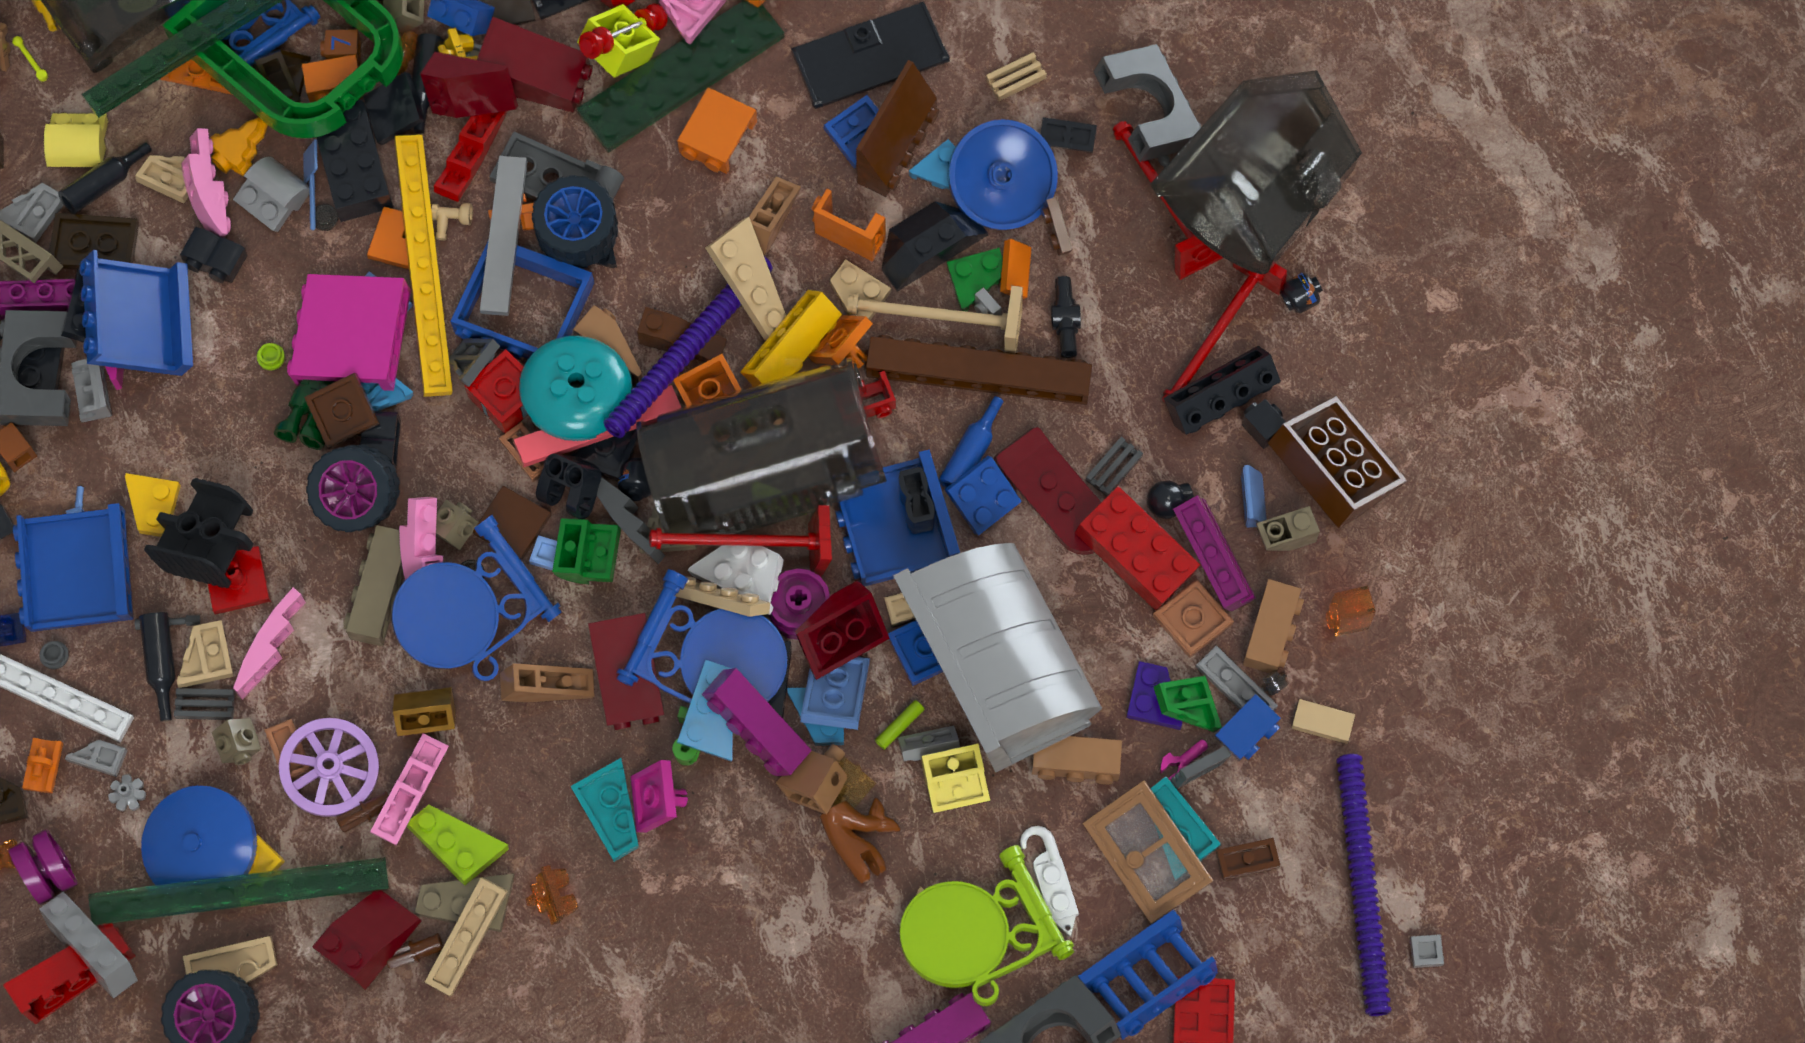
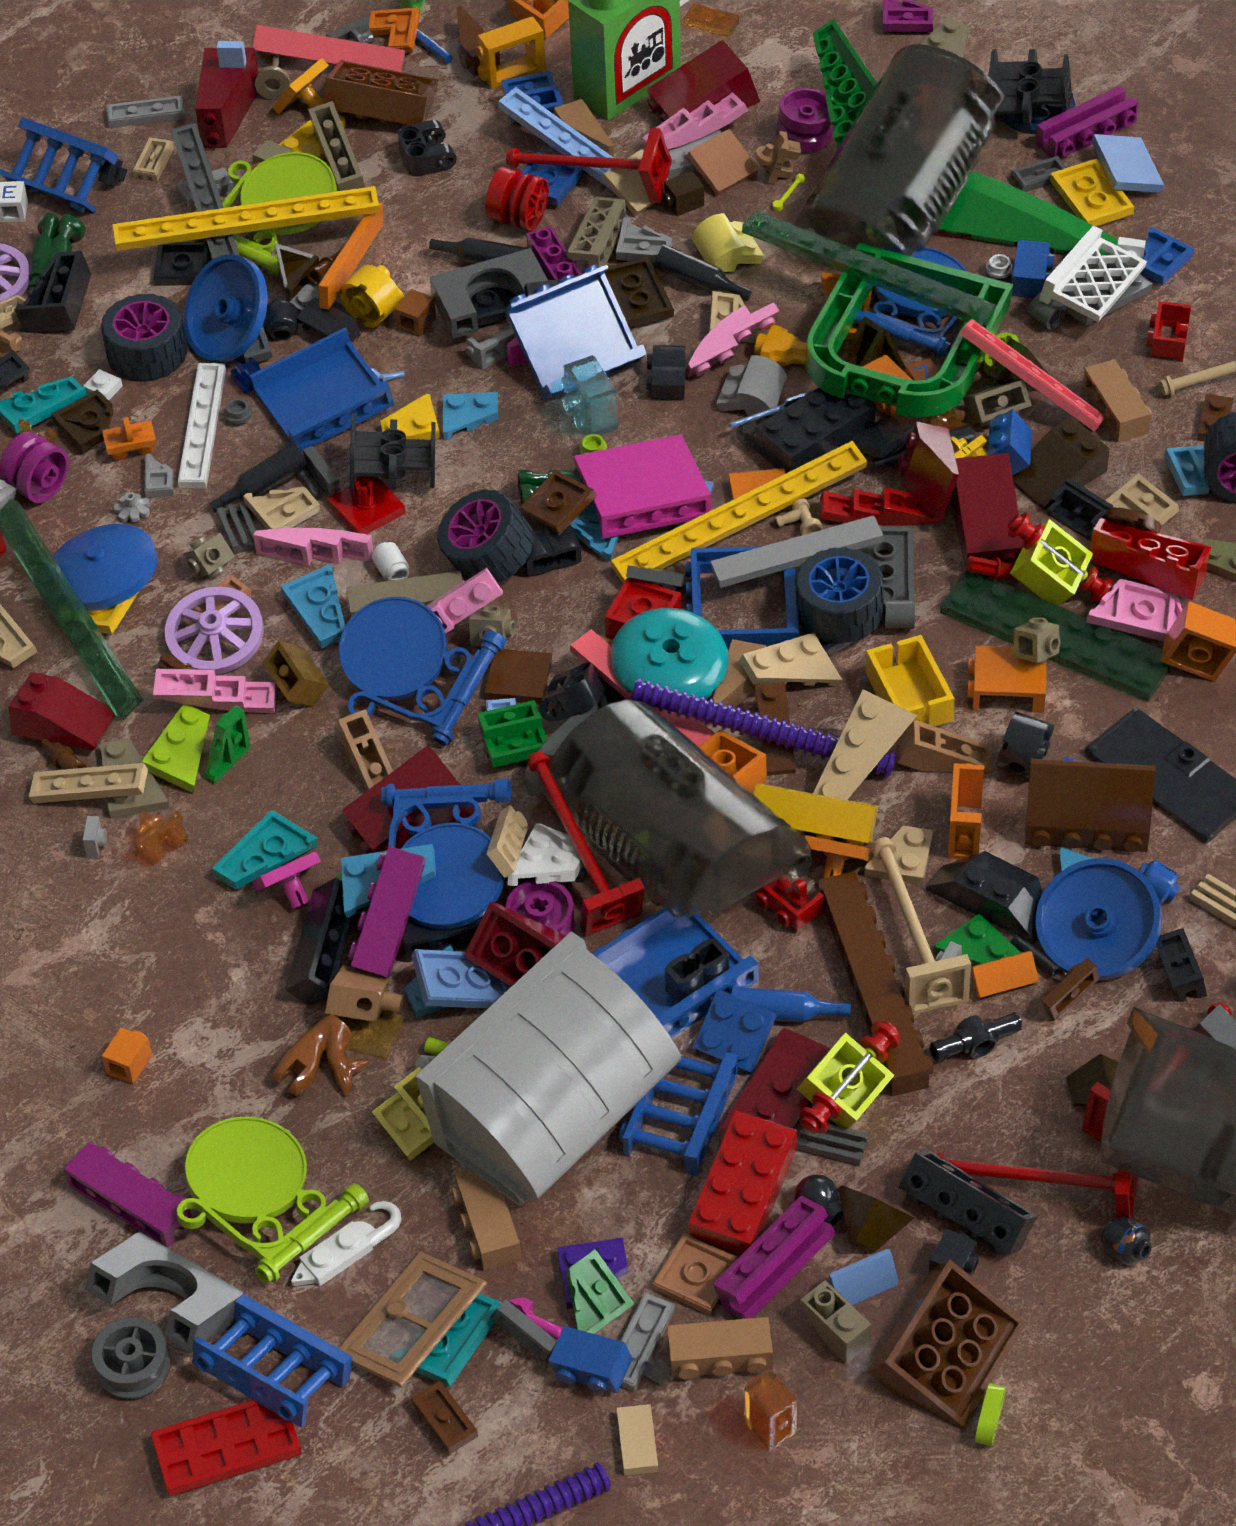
camera: 70 degrees right, 20 degrees down
(164, 448) = (468, 411): none -> dark azure wing
(182, 604) = (321, 472): none -> dark grey tile
(219, 333) = (590, 396): none -> clear light blue brick
(324, 583) = (390, 561): none -> white brick
(343, 666) = (317, 604): none -> dark azure wing
(476, 795) = (228, 745): none -> green wing
(527, 951) = (94, 837): none -> light grey plate
(593, 88) = (993, 568): none -> red axle
(620, 292) = (791, 661): none -> tan wing
(690, 209) = (914, 681): none -> yellow piece
(709, 89) = (1036, 640): none -> dark tan brick
(742, 793) = (320, 944): none -> black brick
(783, 996) = (127, 1055): none -> orange brick
(801, 150) = (1024, 740): none -> black brick
(978, 112) = (1162, 880): none -> blue head
(998, 241) = (1040, 959): none -> black piece
(1059, 554) = (701, 1126): none -> blue fence
(1078, 429) = (848, 1079): none -> neon yellow brick
(1153, 247) = (1099, 1069): none -> dark brown slope
(1200, 468) = (869, 1219): none -> dark brown slope
(1408, 456) = (990, 1414): none -> lime beam

